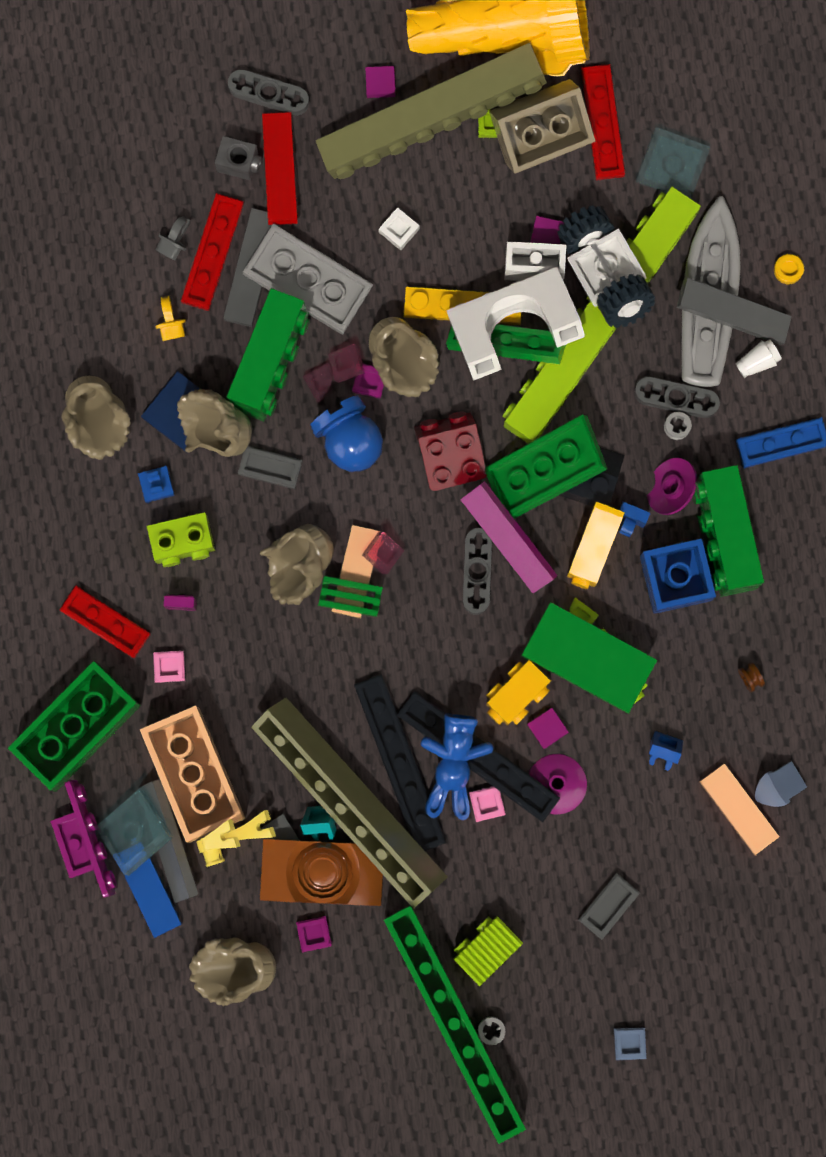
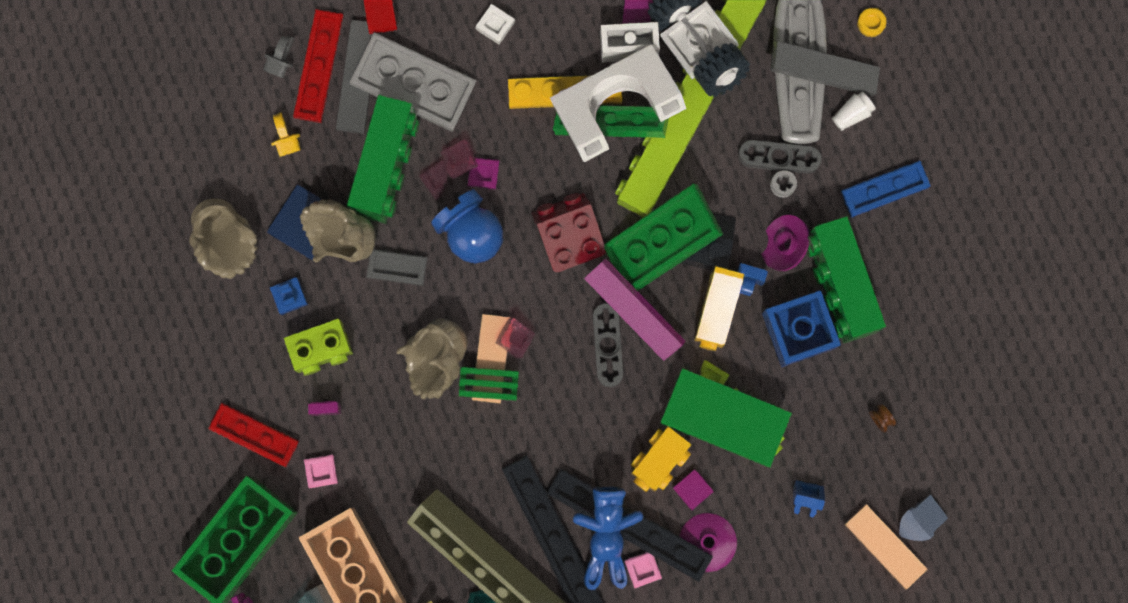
camera: 10 degrees left, 0 degrees up
(403, 357) = (513, 147): dark tan hair -> none

